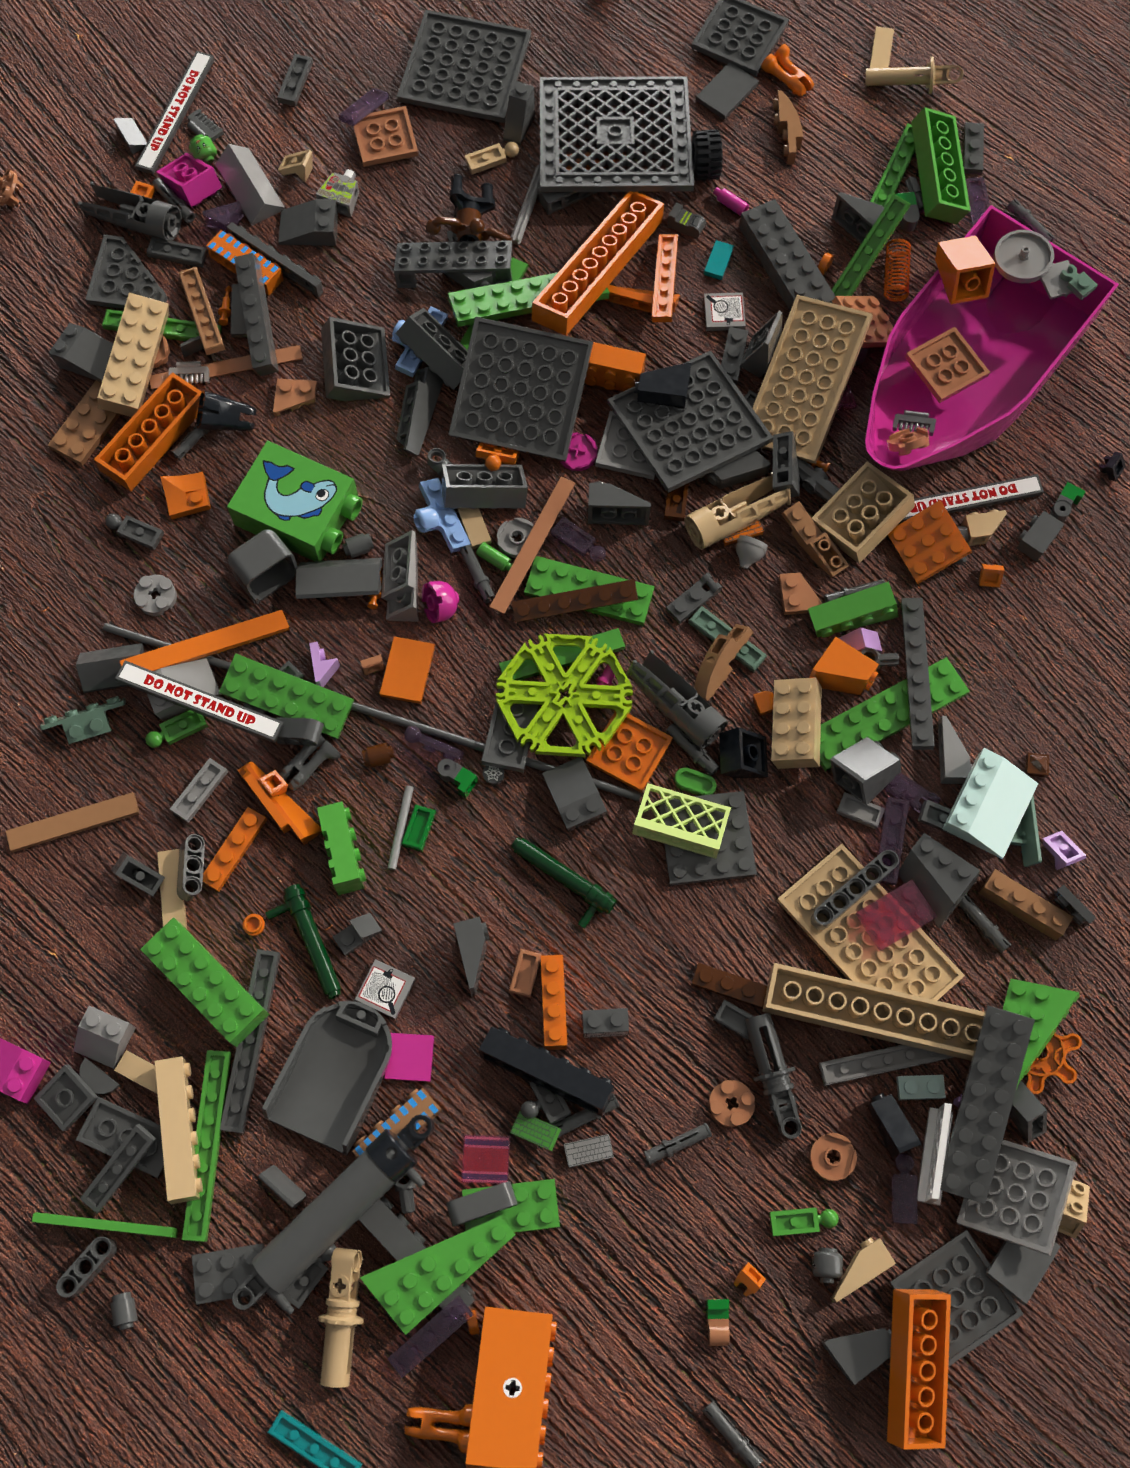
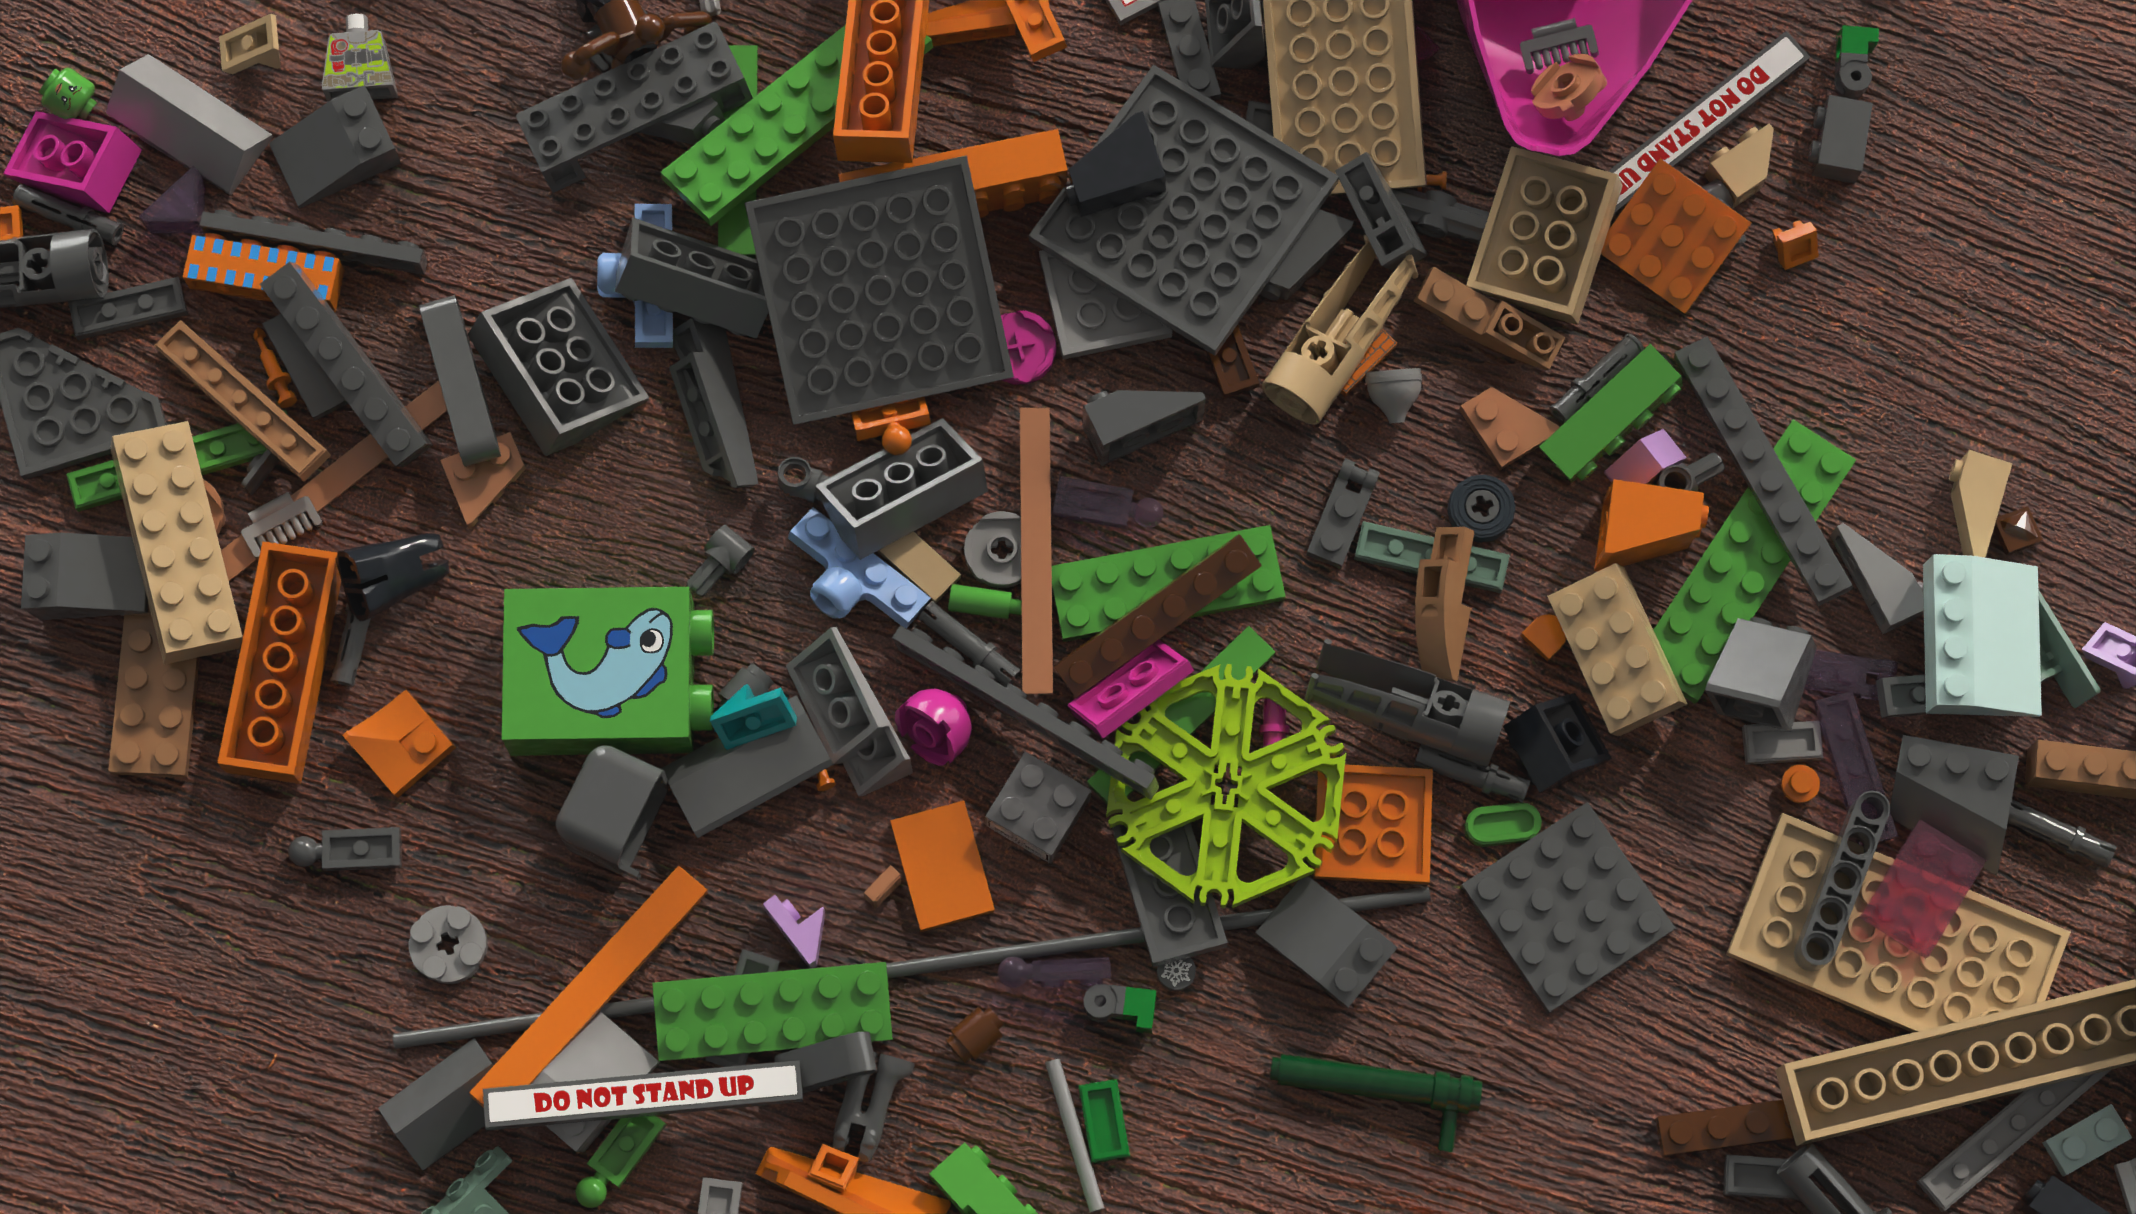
camera: 30 degrees left, 5 degrees up
(203, 125) = (36, 54): dark grey piece -> none
(305, 346) = (459, 381): none -> dark grey beam
(351, 553) = (751, 717): none -> teal slope
(385, 479) = (725, 554): none -> dark grey axle
(467, 663) = (1038, 807): none -> flat silver brick
(489, 619) = (1039, 718): none -> dark grey plate
(542, 627) = (1130, 688): none -> dark pink tile
(681, 837) = (1523, 933): yellowish green fence -> none
(772, 619) = (1489, 491): none -> black bush
(859, 834) = (1800, 783): none -> orange plate
(1024, 736) = (1977, 498): none -> tan slope

